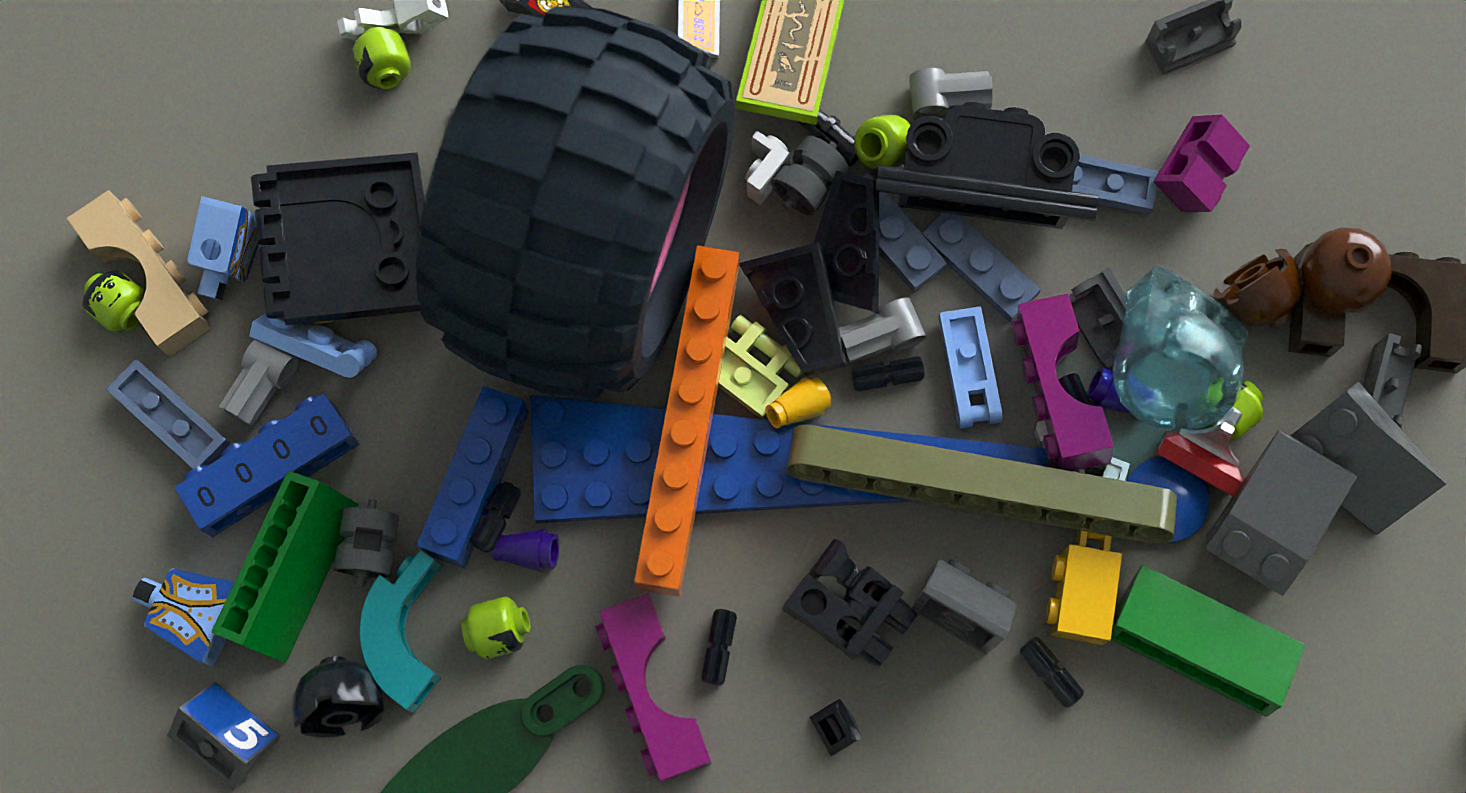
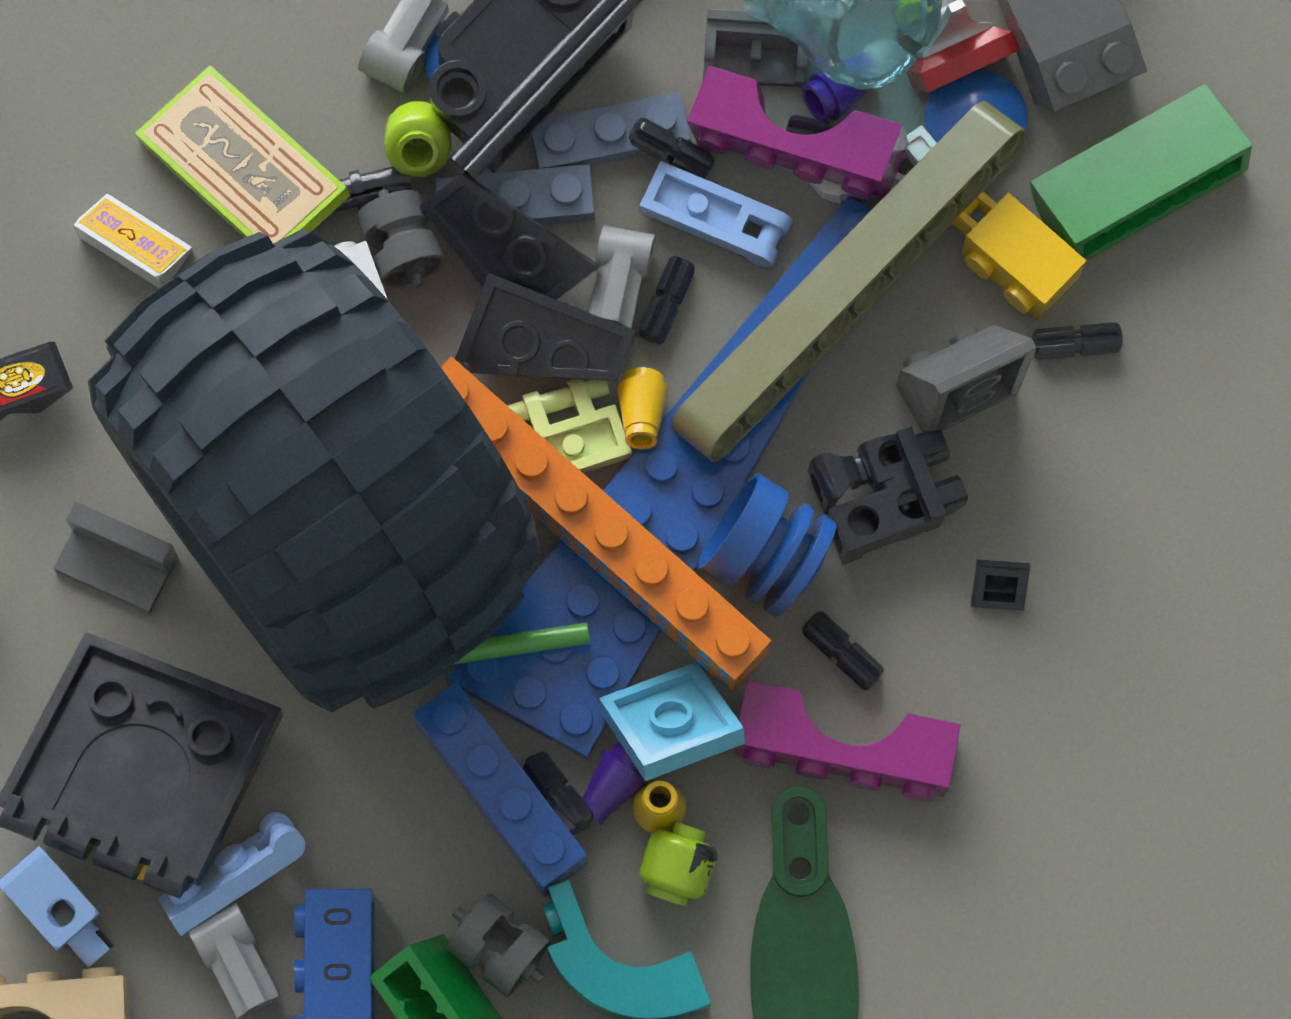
camera: 60 degrees left, 0 degrees up
(536, 598) = (652, 817): none -> yellow cone
(584, 431) = (529, 642): none -> bright green bar
(586, 560) = (671, 721): none -> medium azure plate
(751, 547) = (775, 550): none -> blue wheel
(996, 317) = (661, 144): none -> black piece

